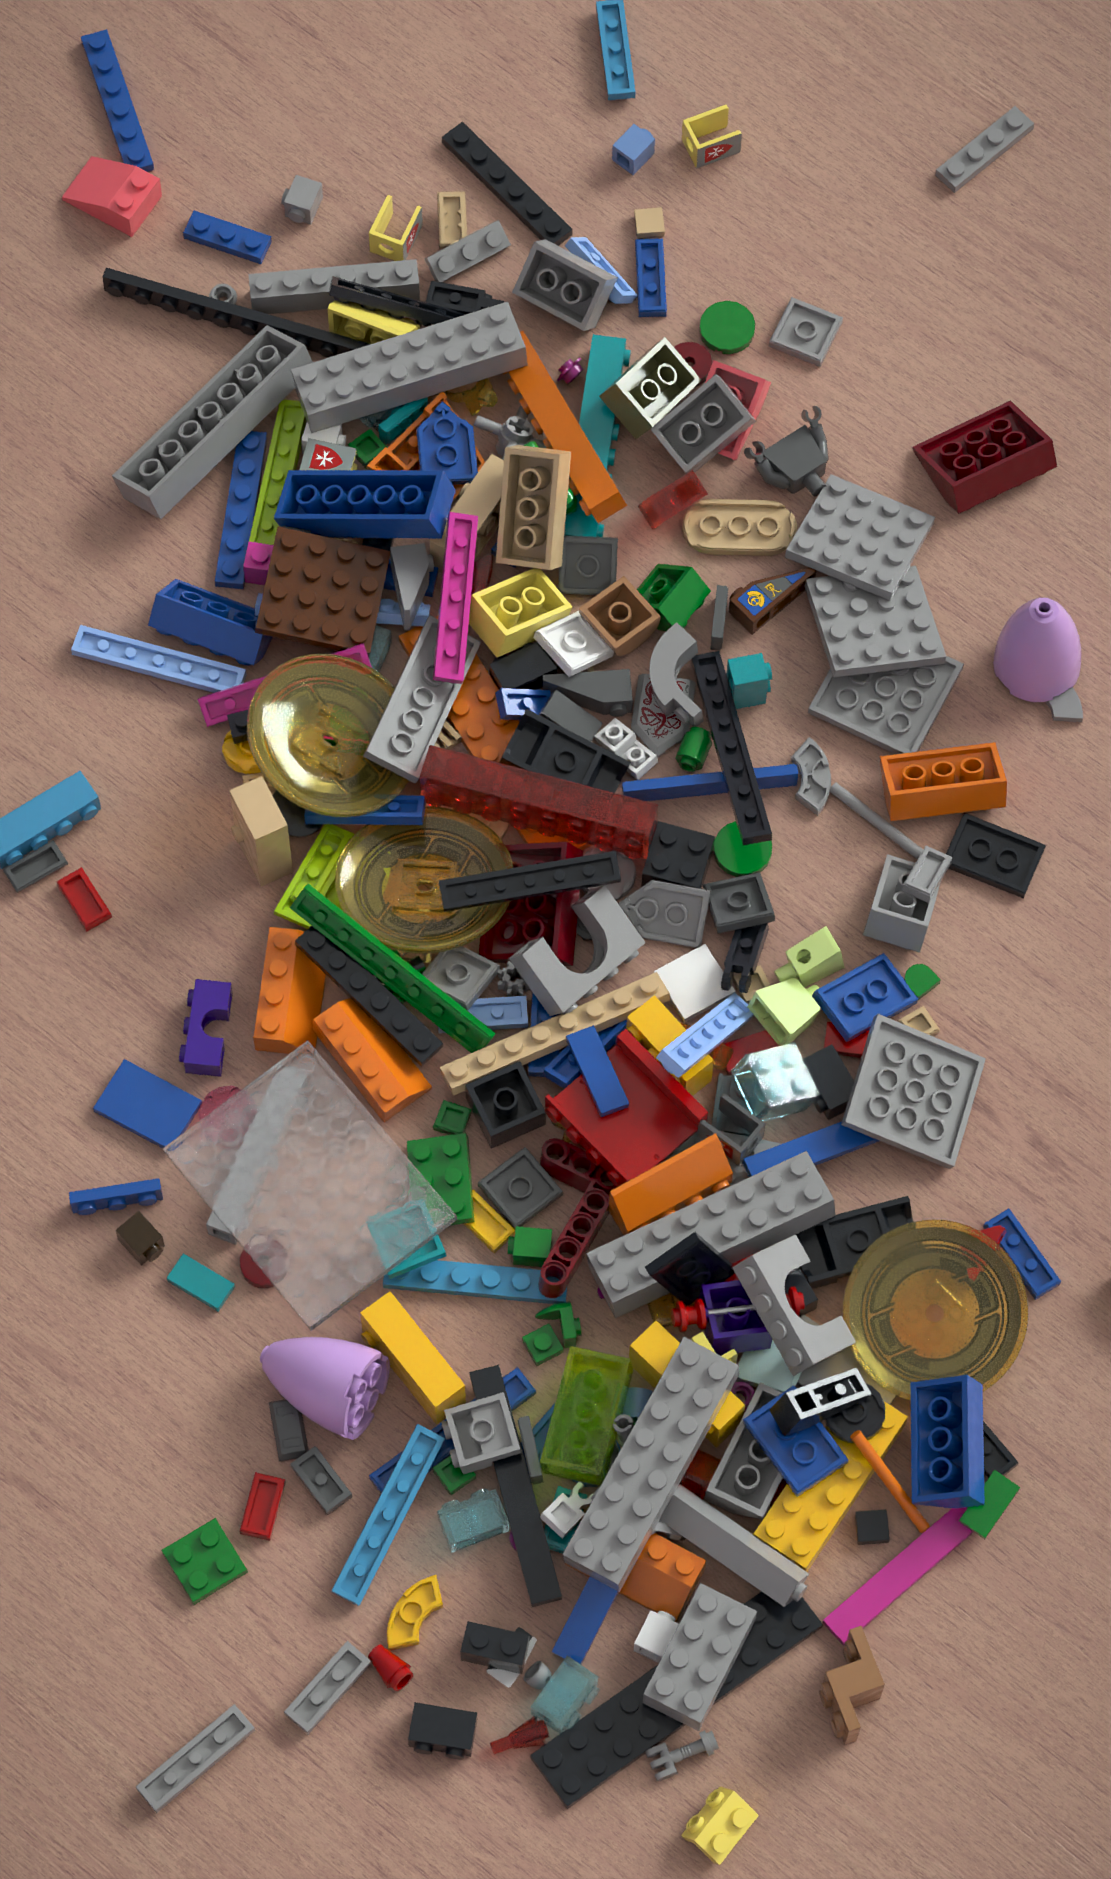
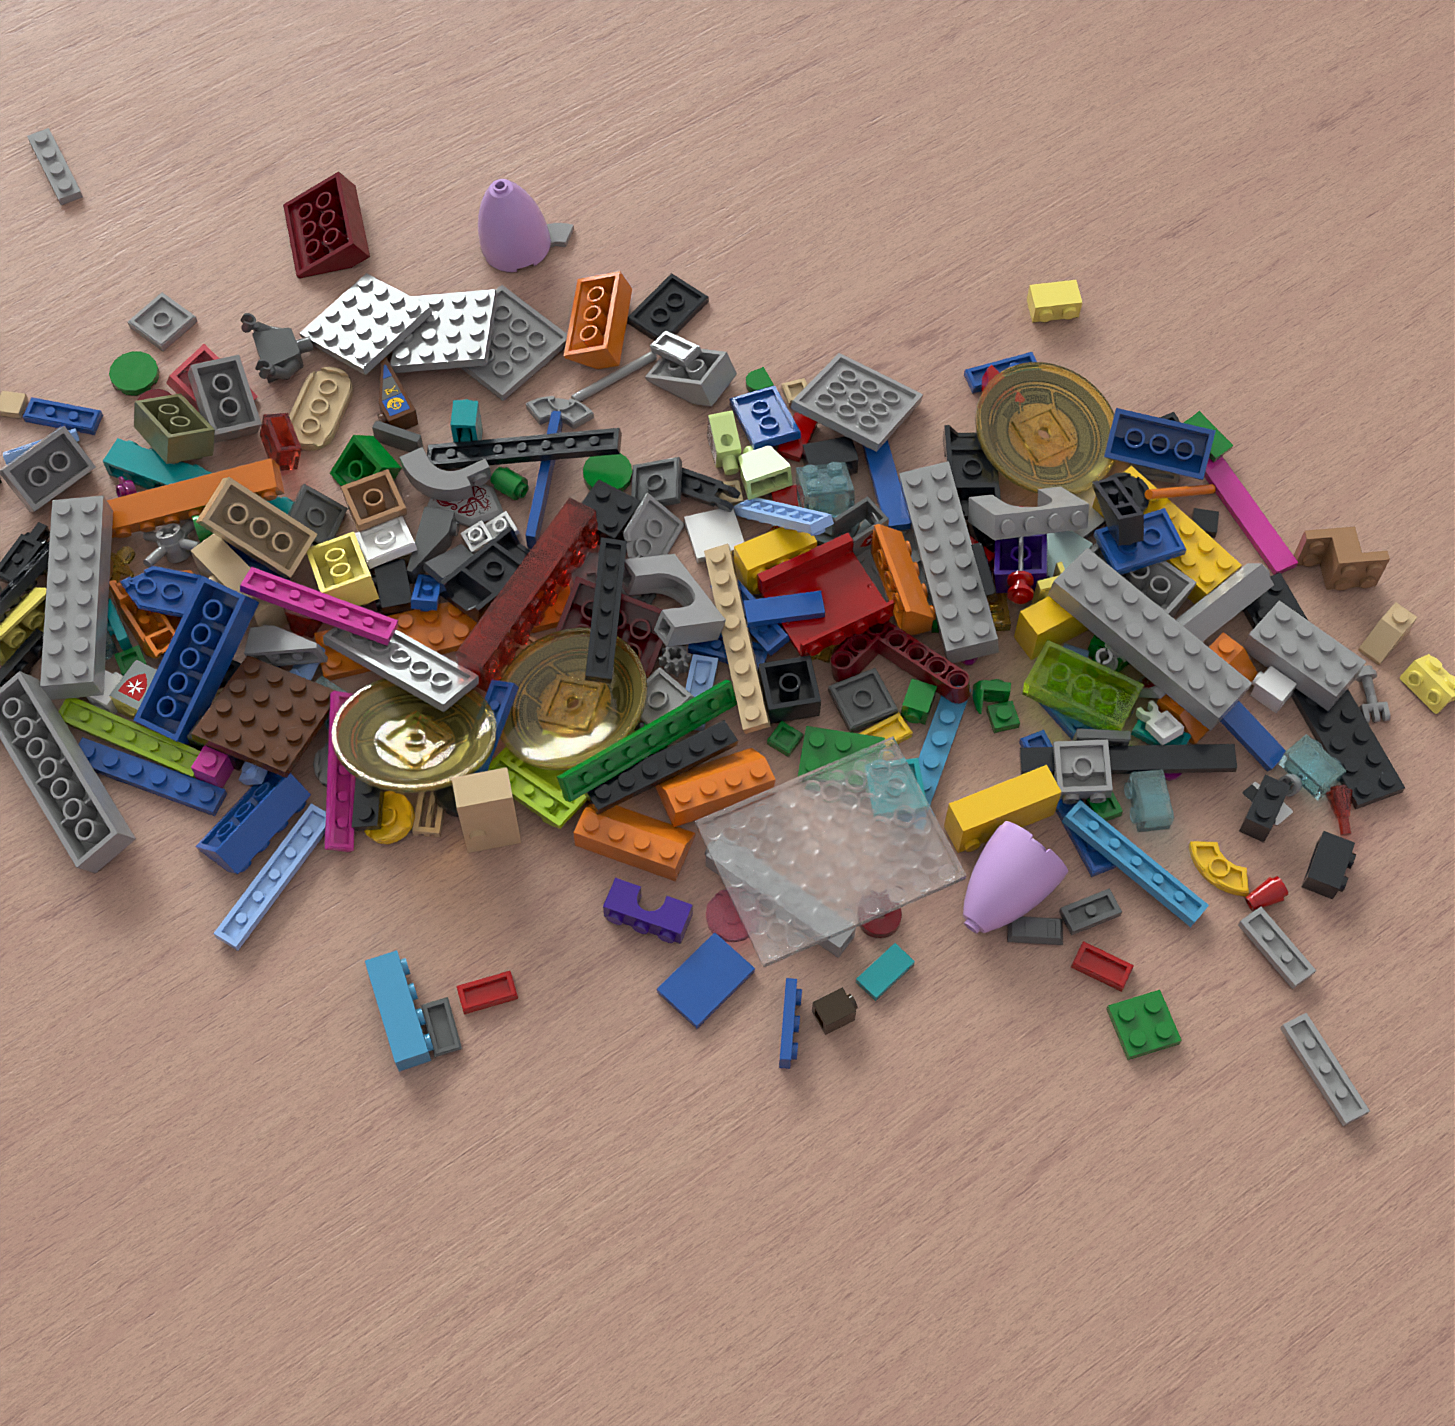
camera: 75 degrees left, 5 degrees down
(769, 1760) = (1387, 633): none -> tan slope

